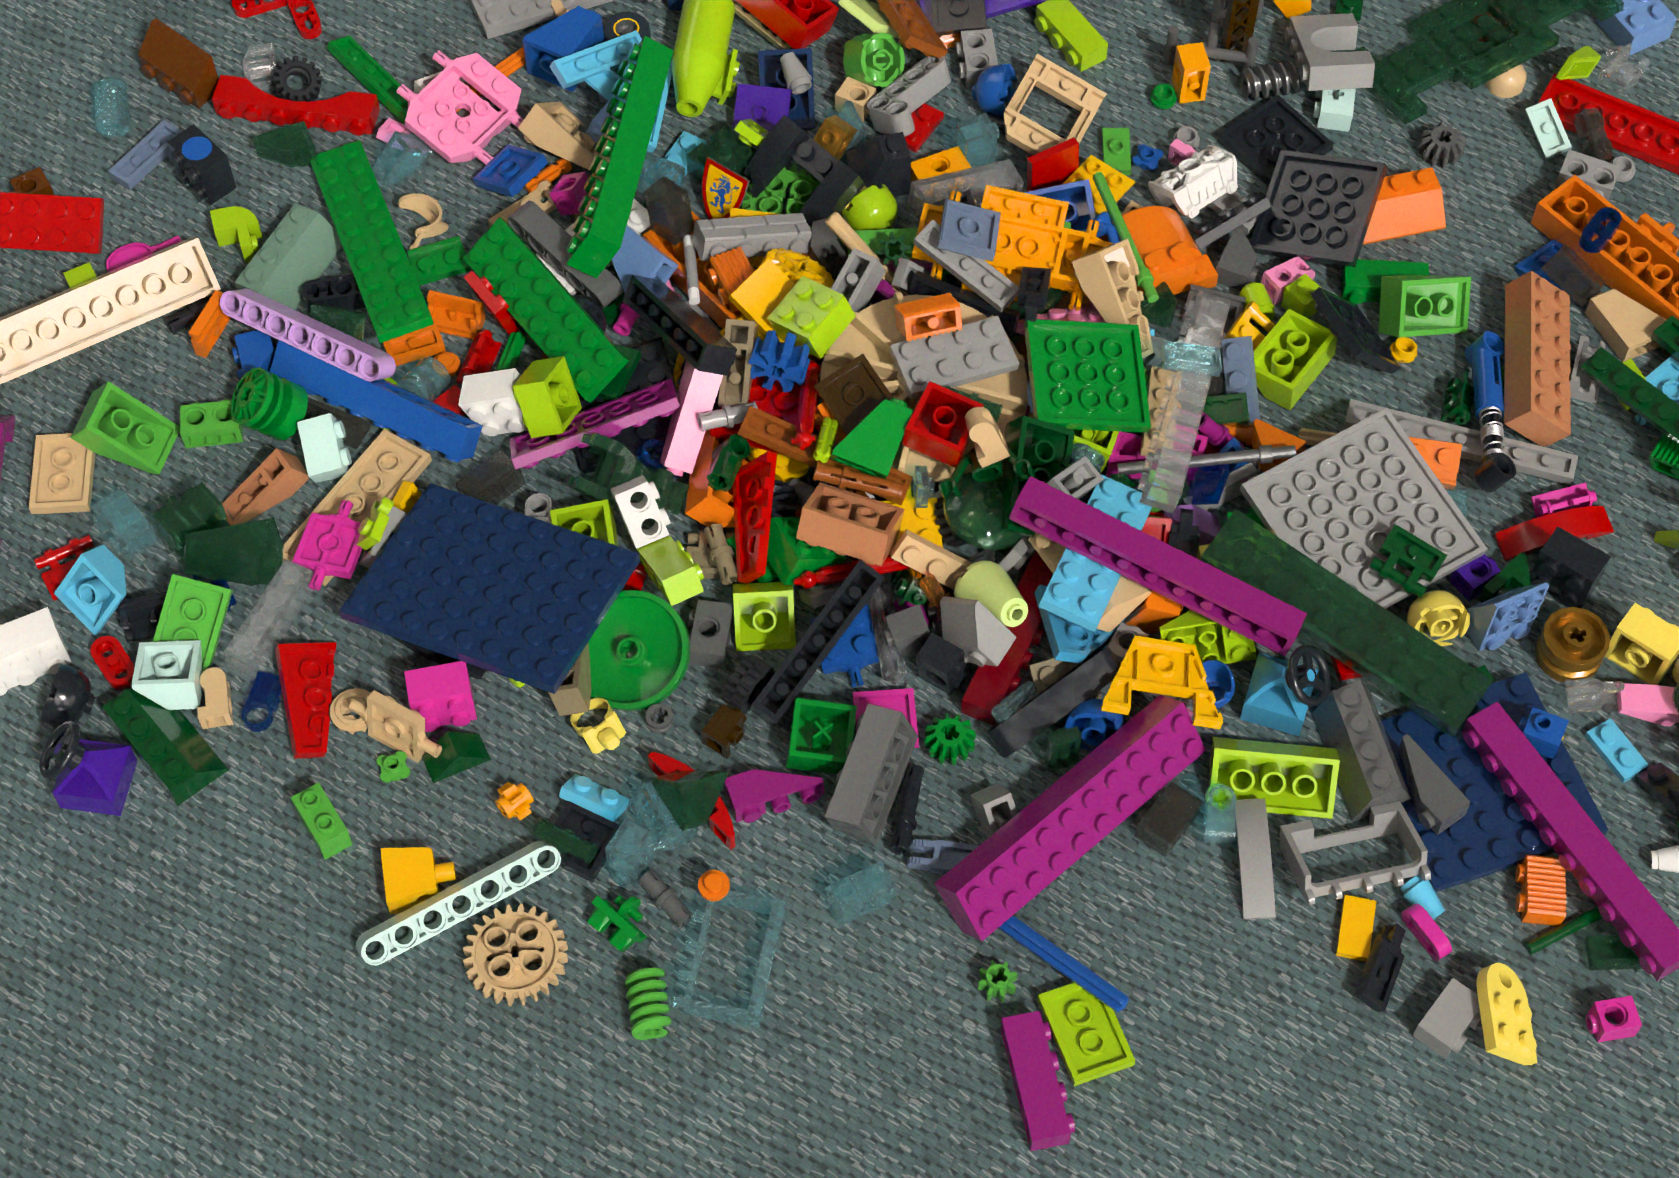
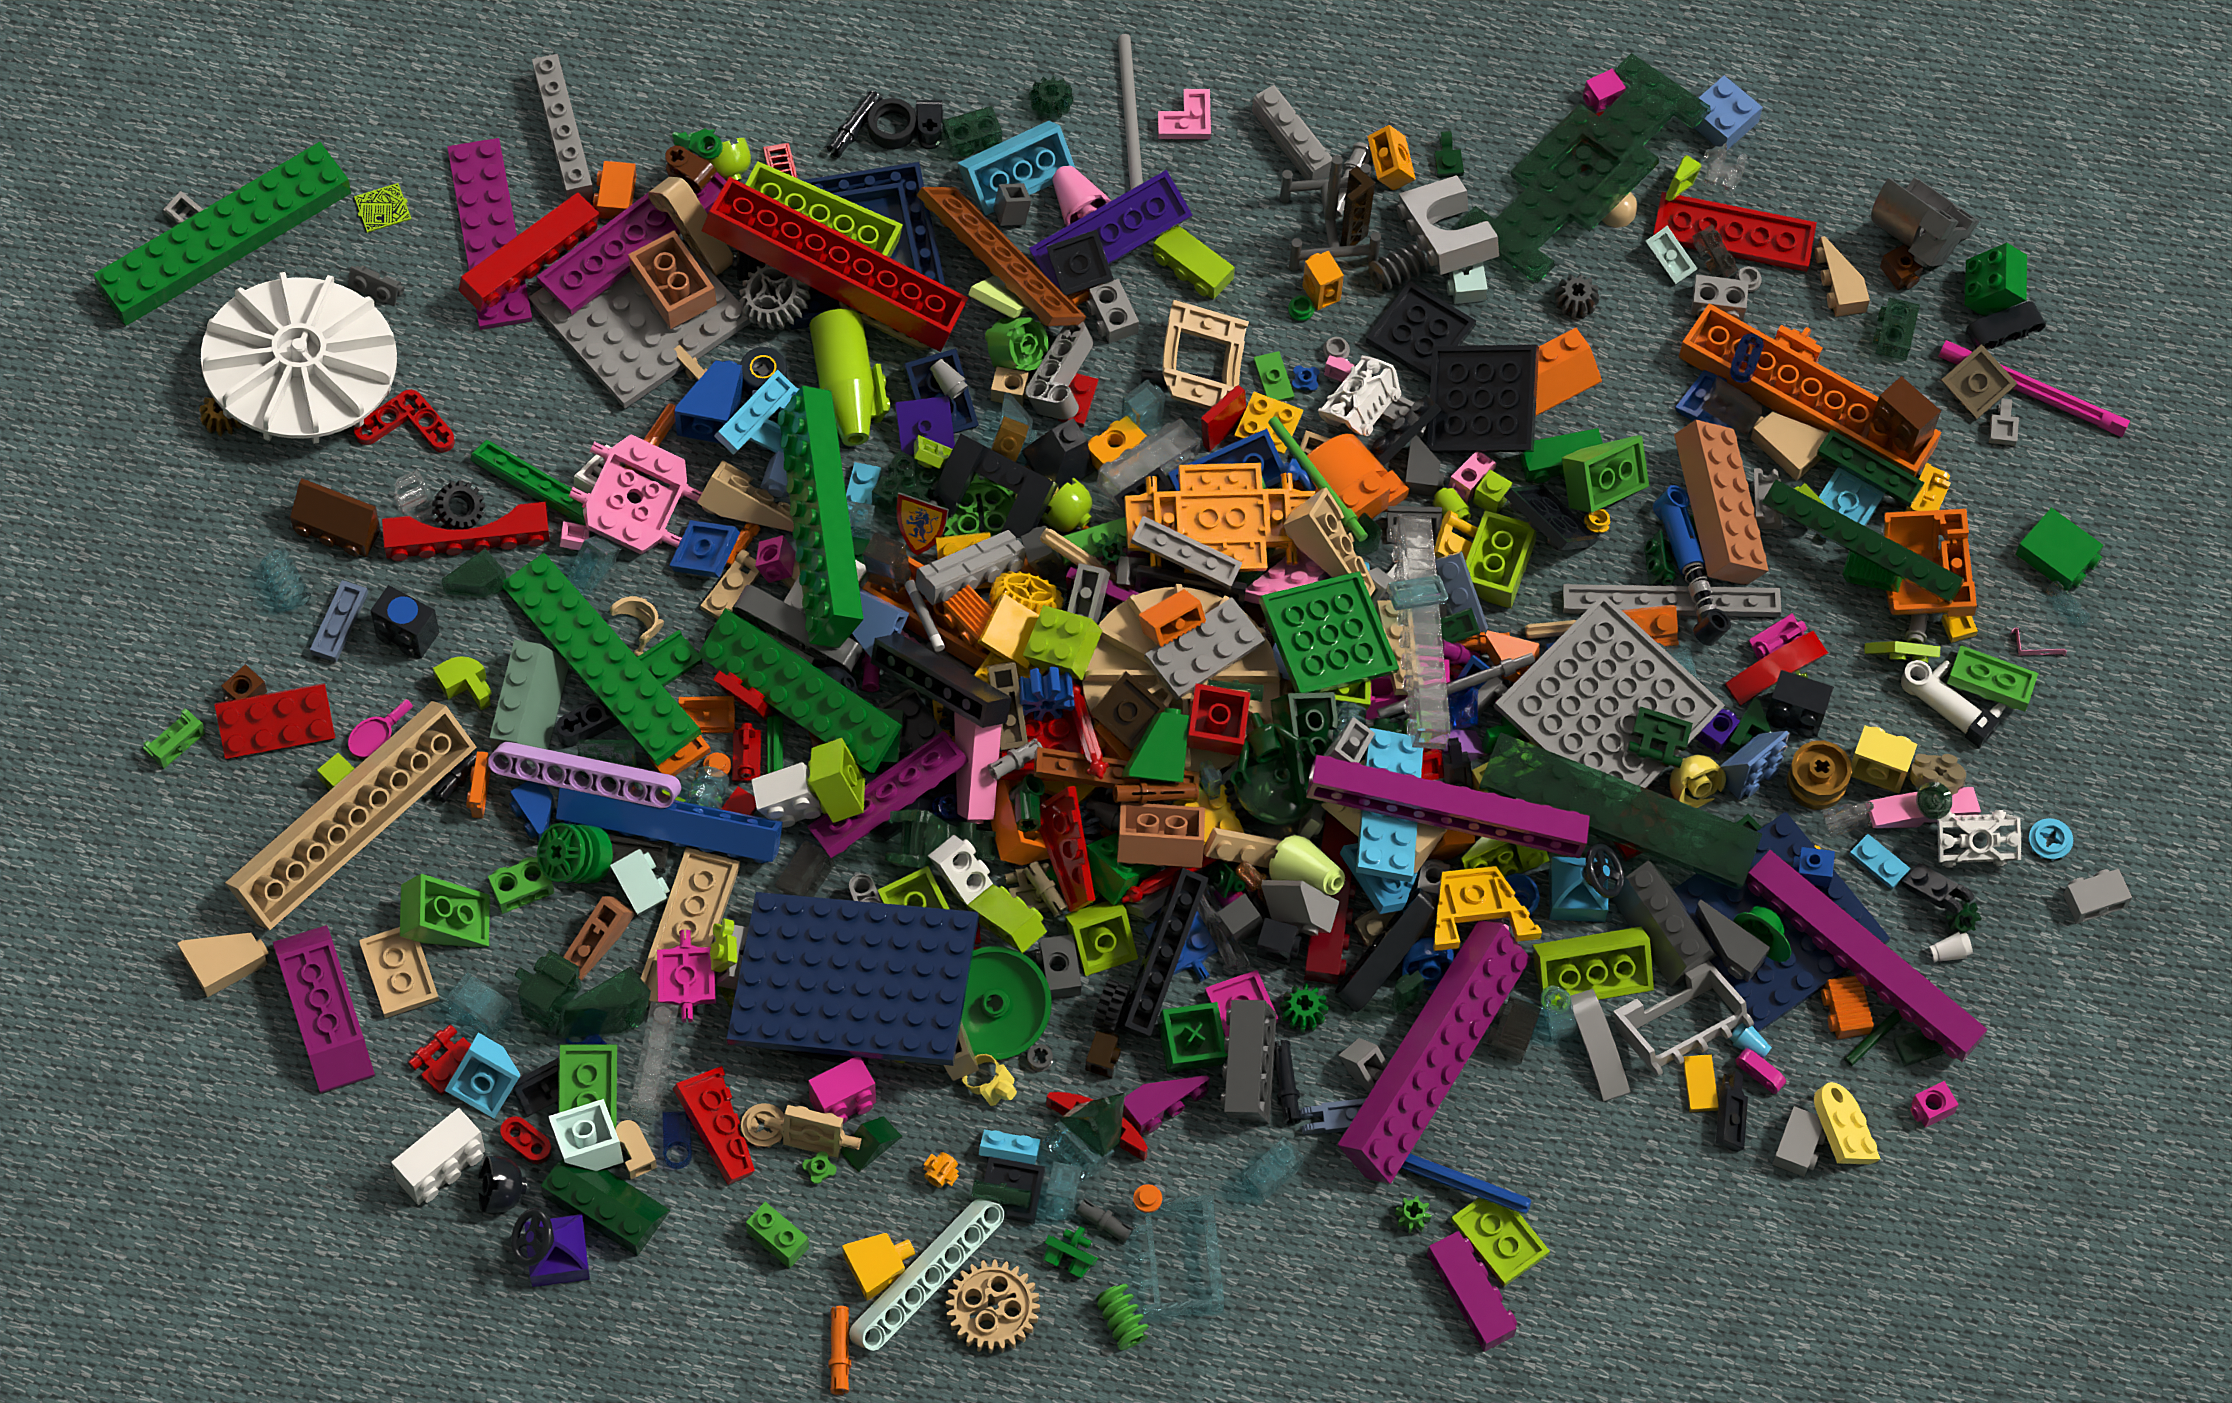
camera: 20 degrees left, 5 degrees up
(336, 967) = (839, 1359): none -> orange pin
(406, 496) = (736, 910): yellow plate -> none
(825, 440) = (1115, 761): lime axle -> none
(969, 230) = (1179, 517): sand blue tile -> none
(987, 437) = (1263, 725): tan leg -> none
(994, 88) = (1140, 343): blue cylinder -> none
(1014, 701) = (1352, 959): clear light blue axle -> none
(1033, 291) = (1257, 563): black hinge -> none
(1474, 782) = (1767, 928): none -> green piece

